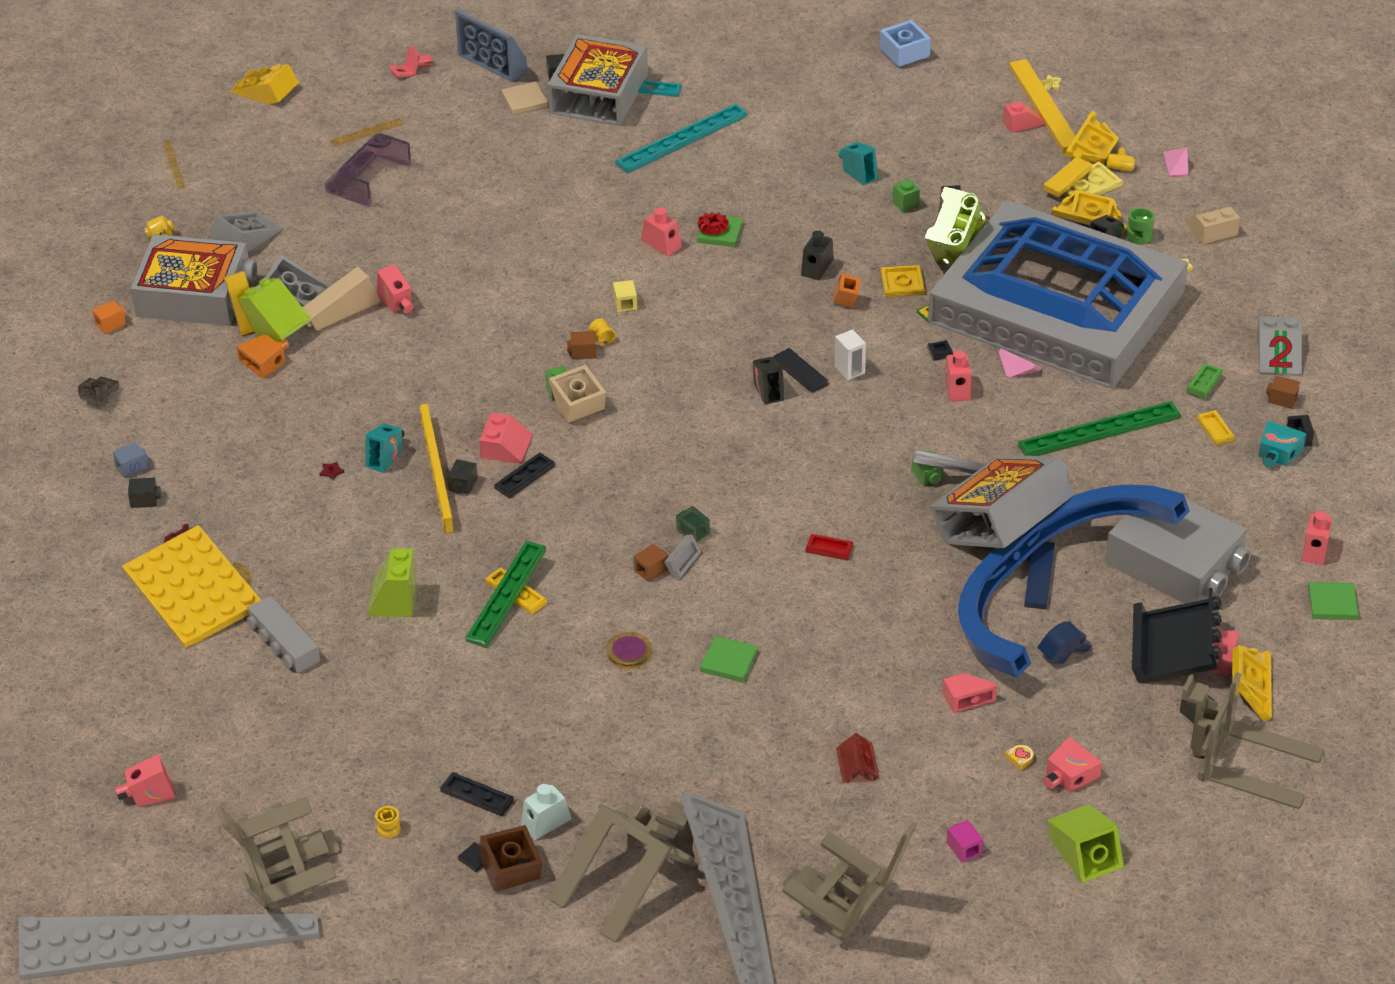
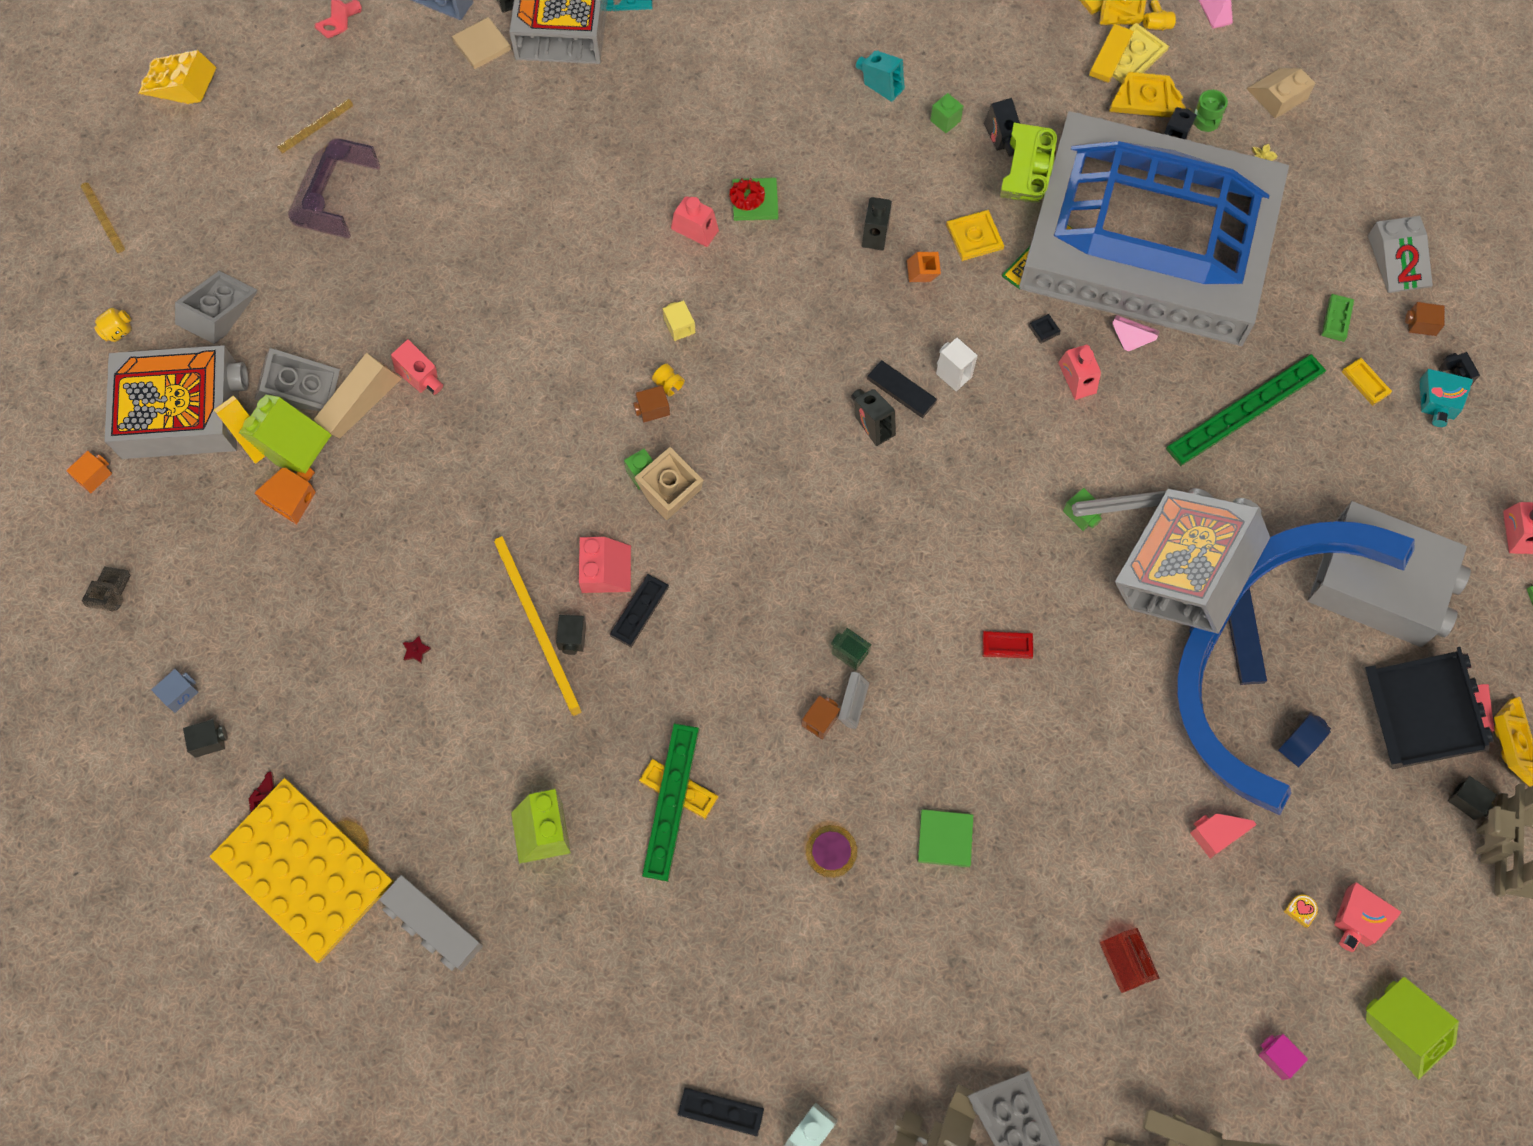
camera: 15 degrees left, 25 degrees up
(383, 446) = (469, 608): teal torso -> none
(681, 138) = (673, 71): teal tile -> none

